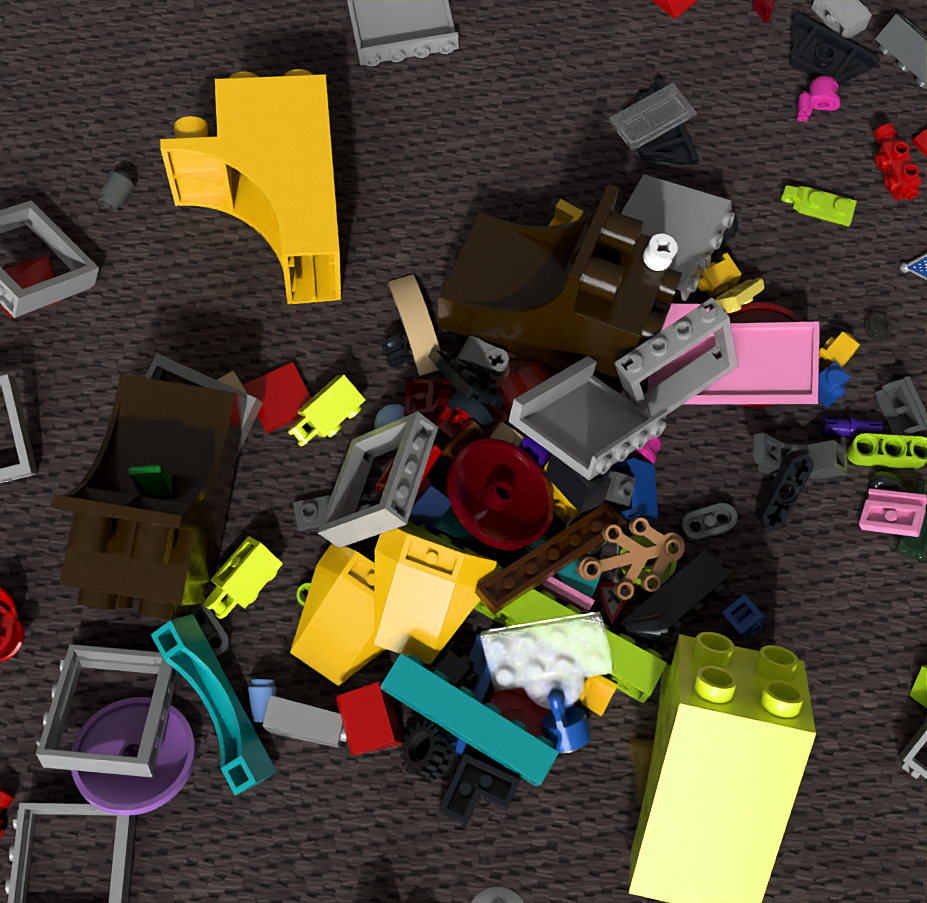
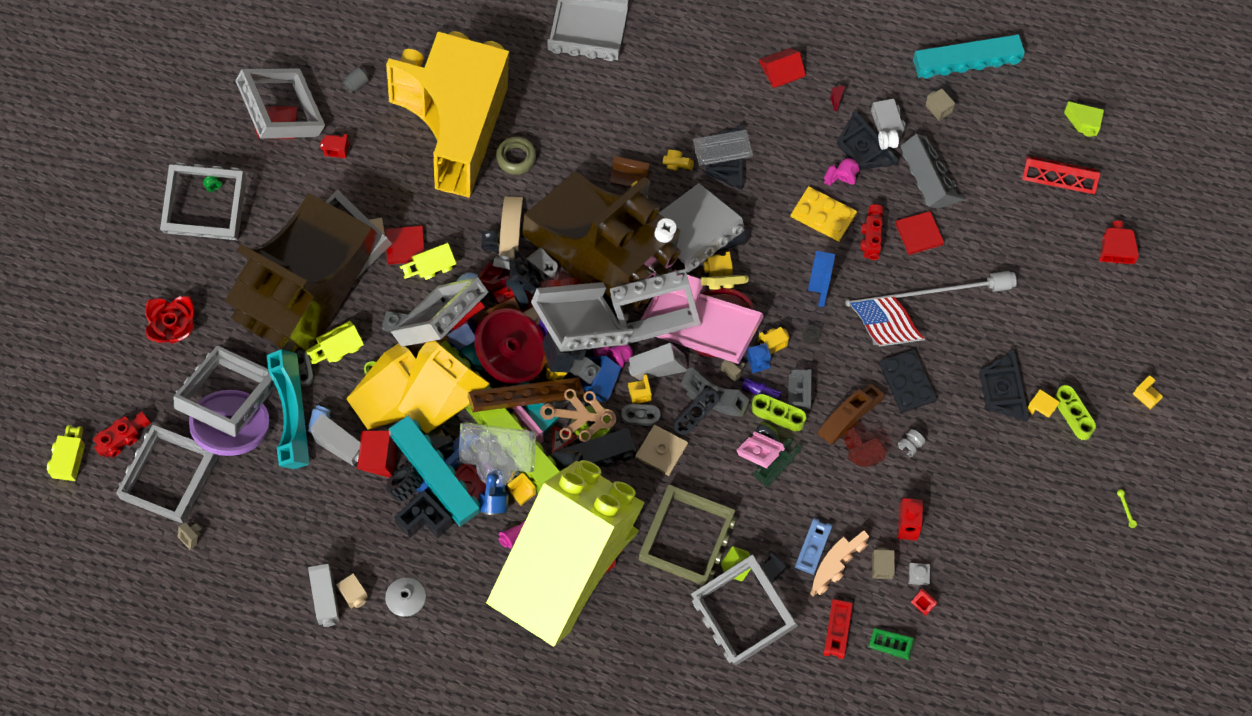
camera: 20 degrees right, 5 degrees down
(124, 291) = (335, 146): none -> red brick
(152, 481) = (301, 260): green slope -> none
(374, 202) = (516, 168): none -> olive wheel
(428, 374) = (502, 261): none -> light grey plate
(541, 191) = (628, 171): none -> reddish brown panel
(594, 155) = (673, 161): none -> yellow plate
(610, 767) = (509, 536): none -> dark pink cone
(692, 487) = (640, 391): none -> yellow panel
(699, 441) = (658, 362): none -> light grey slope
(744, 616) = (637, 481): blue brick -> none
(758, 561) = (661, 450): none -> tan plate
(801, 414) = (732, 370): none -> dark tan tile
(817, 160) = (823, 214): none -> yellow plate
(820, 204) = (809, 241): lime hinge -> none
(860, 34) = (888, 139): none -> white wheel
(876, 242) = (821, 274): none -> blue fence
(900, 663) = (701, 503): none -> olive window

